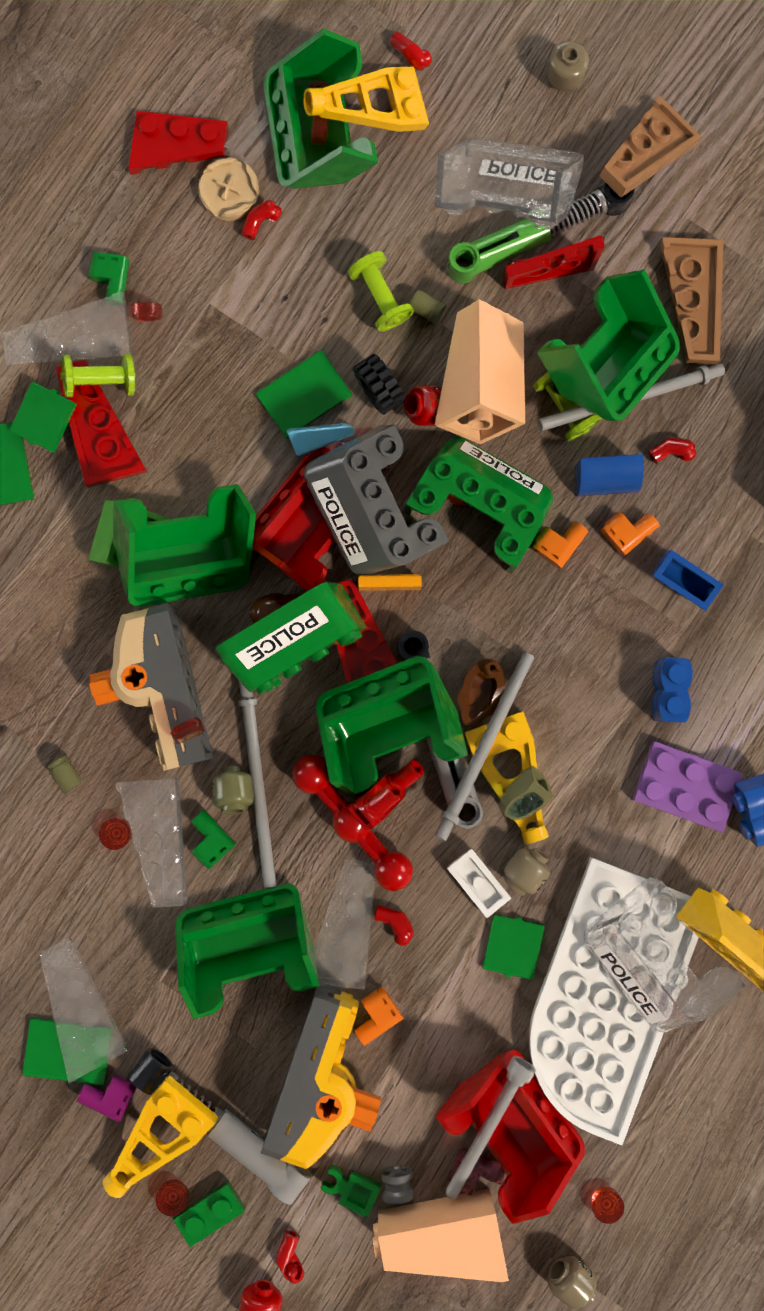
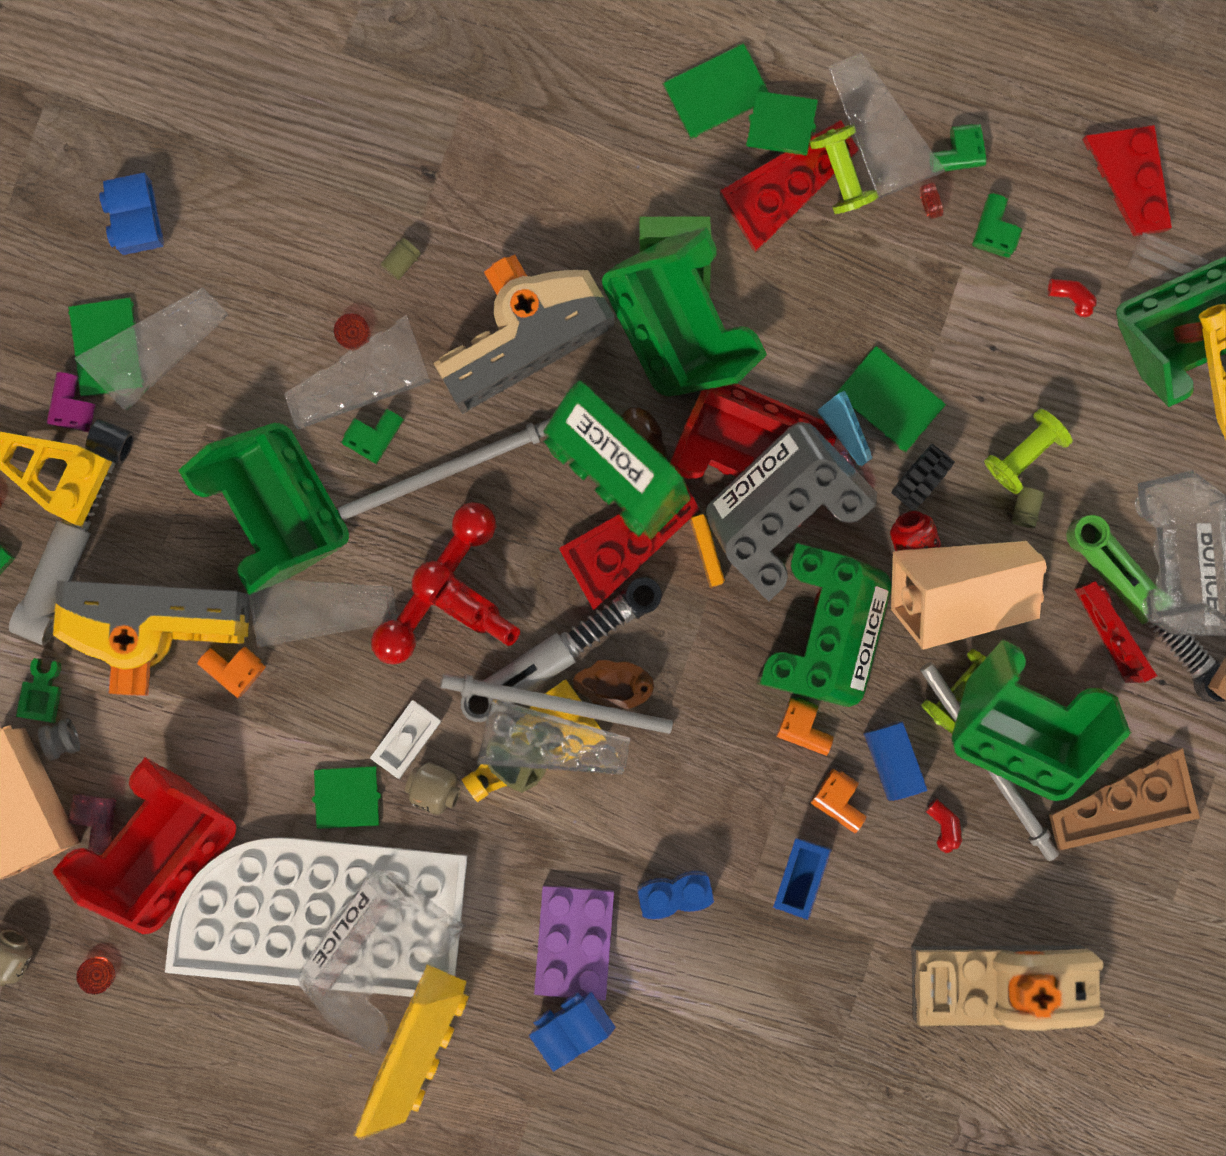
camera: 75 degrees right, 0 degrees up
(187, 730) = (482, 376): clear red tile -> none
(189, 268) = (993, 233): none -> green piece
(228, 189) = (1096, 251): tan tile -> none
(232, 790) = (432, 444): olive head -> none
(385, 715) = (558, 584): green windscreen -> none
(399, 923) = (339, 664): red arm -> none
(515, 765) = (543, 741): none -> clear wing
(518, 1074) = (213, 836): light grey piece -> none

